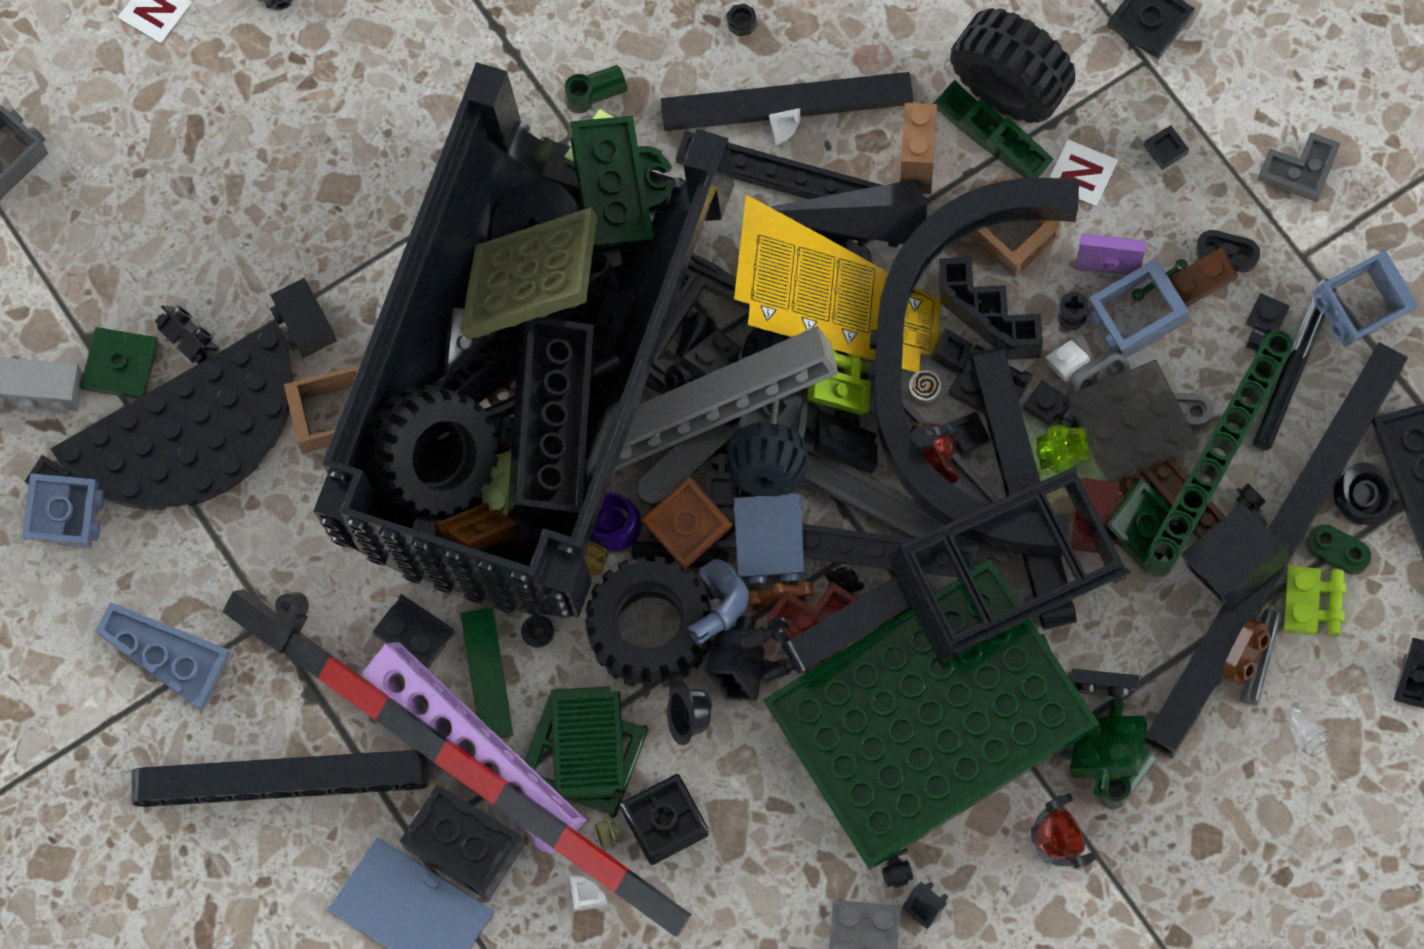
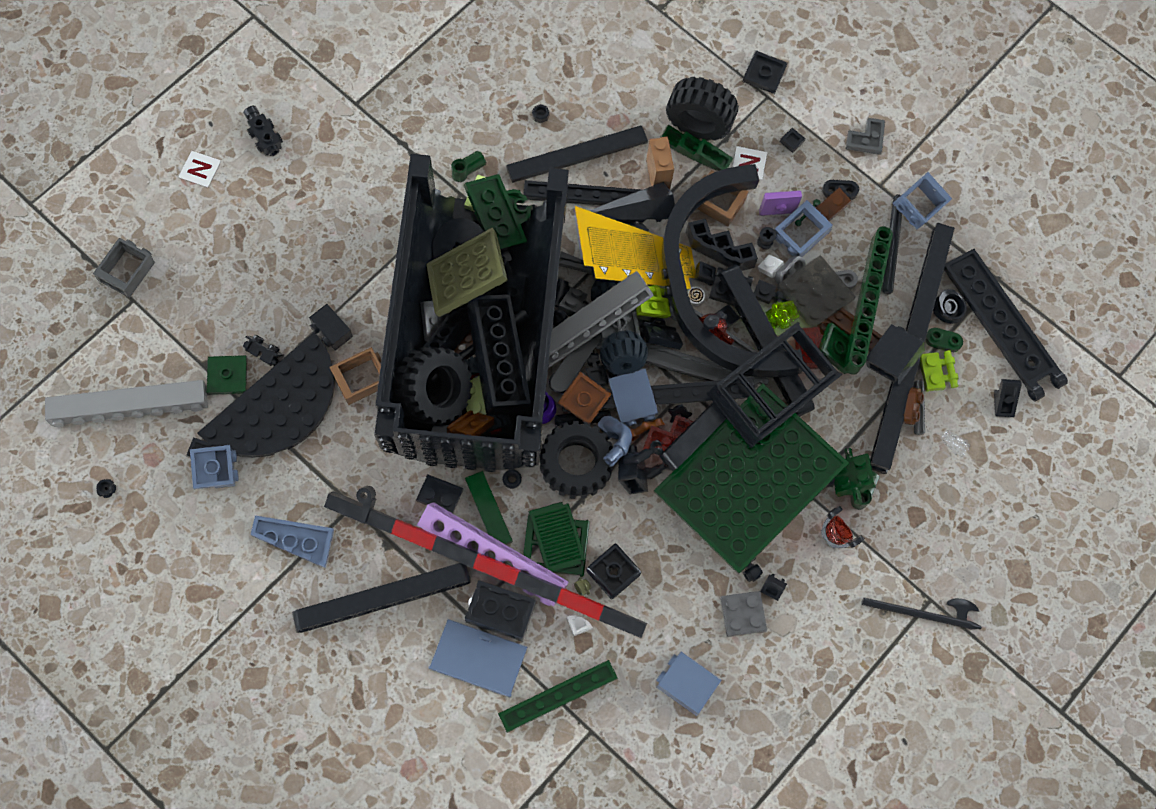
camera: 25 degrees left, 0 degrees up
(687, 710) = (610, 505): black piece -> none
(784, 125) = (579, 166): white tile -> none
(1116, 683) = (846, 439): black plate -> none
(1250, 498) = (888, 320): black plate -> none
(1265, 317) = (870, 222): black plate -> none

